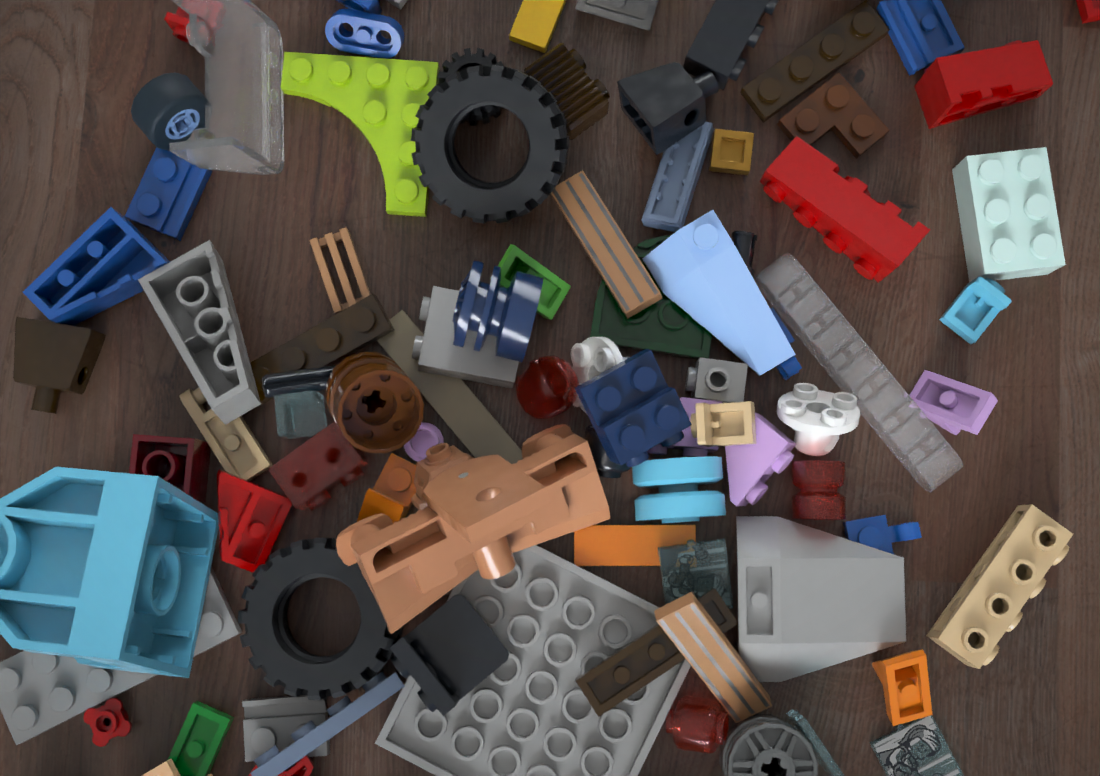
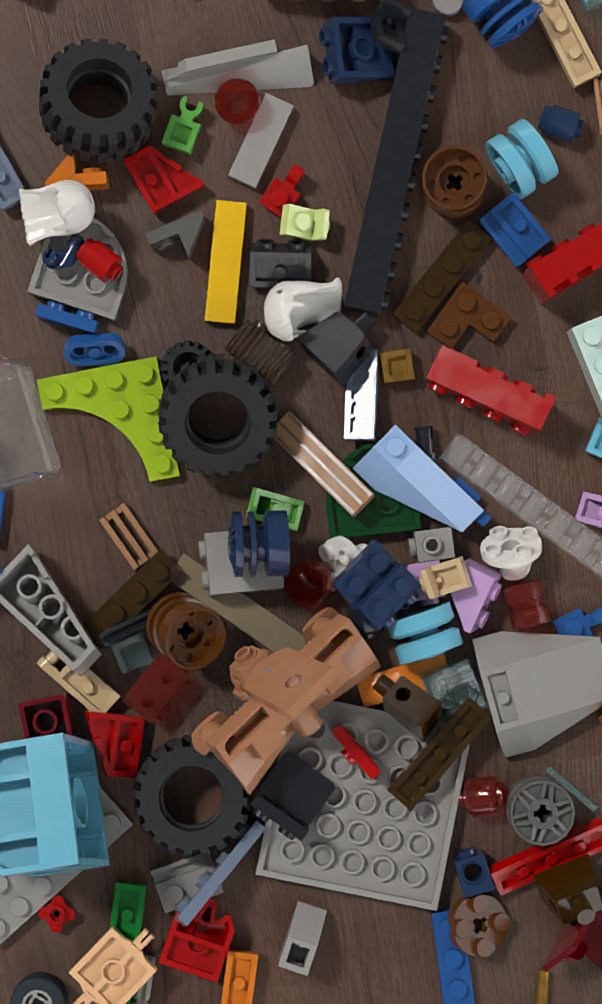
camera: 25 degrees left, 5 degrees up
(392, 490) = (215, 691): orange slope -> none
(426, 437) = (231, 646): lavender plate -> none
(546, 619) = (354, 752): none -> red plate
(632, 42) = (298, 304): none -> white piece
(634, 576) = (417, 714): none -> dark brown torso
(713, 657) = (481, 747): medium nougat tile -> none

